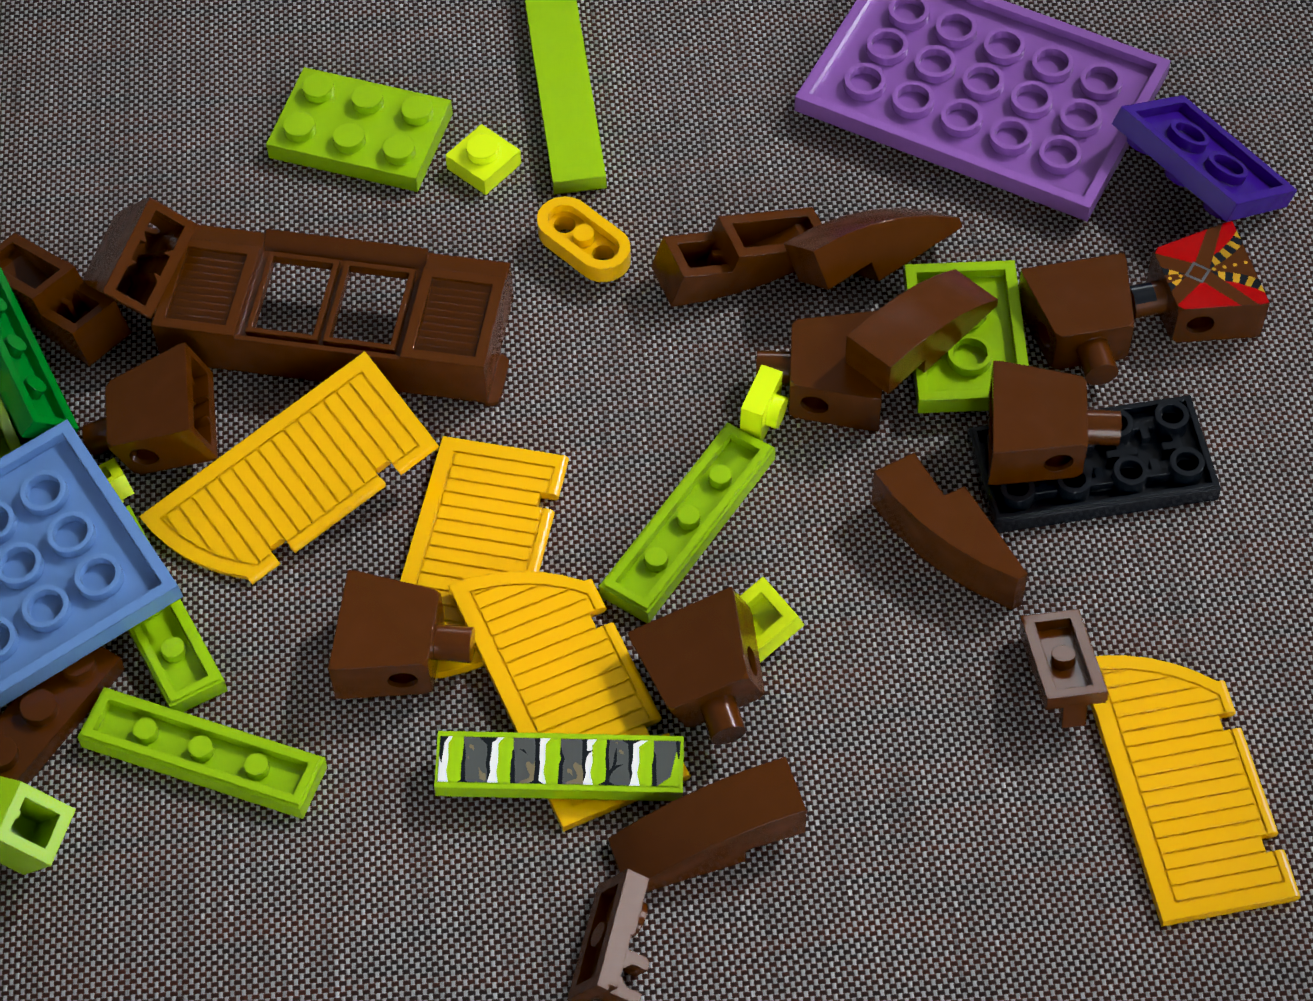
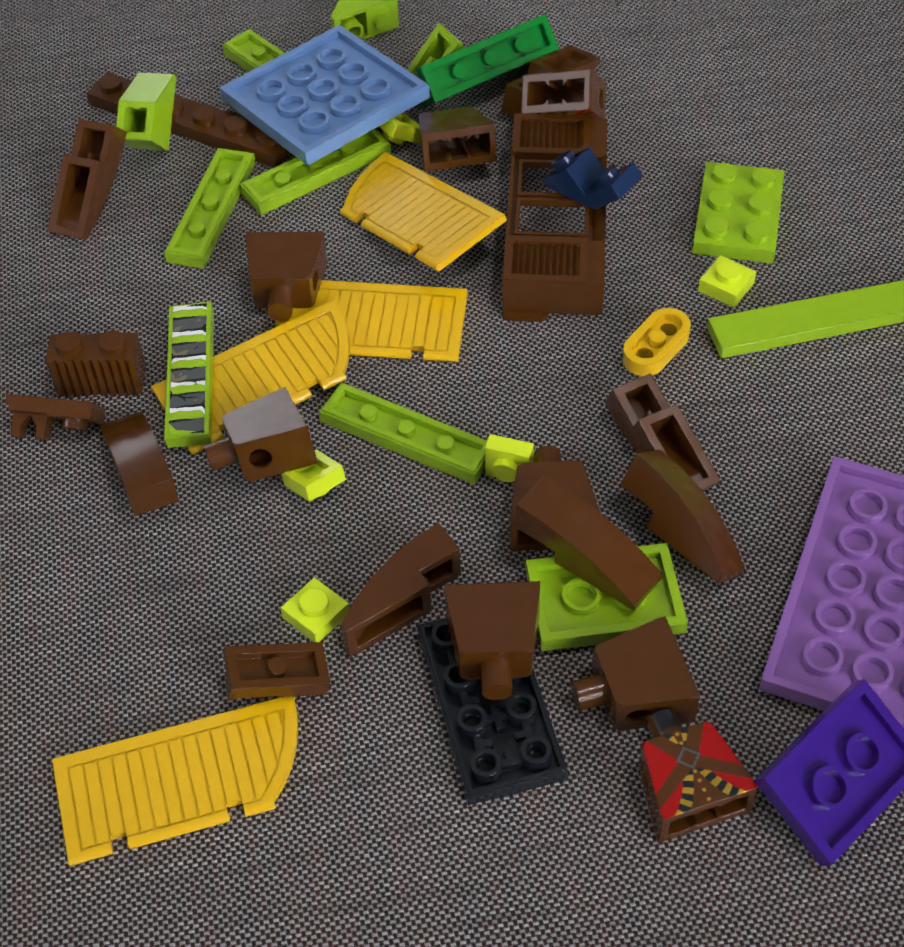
camera: 85 degrees right, 5 degrees down
(124, 914) = (86, 178): none -> reddish brown slope
(325, 254) = (586, 180): none -> dark blue slope
(528, 885) = (96, 363): none -> reddish brown brick
(960, 632) = (315, 610): none -> neon yellow plate

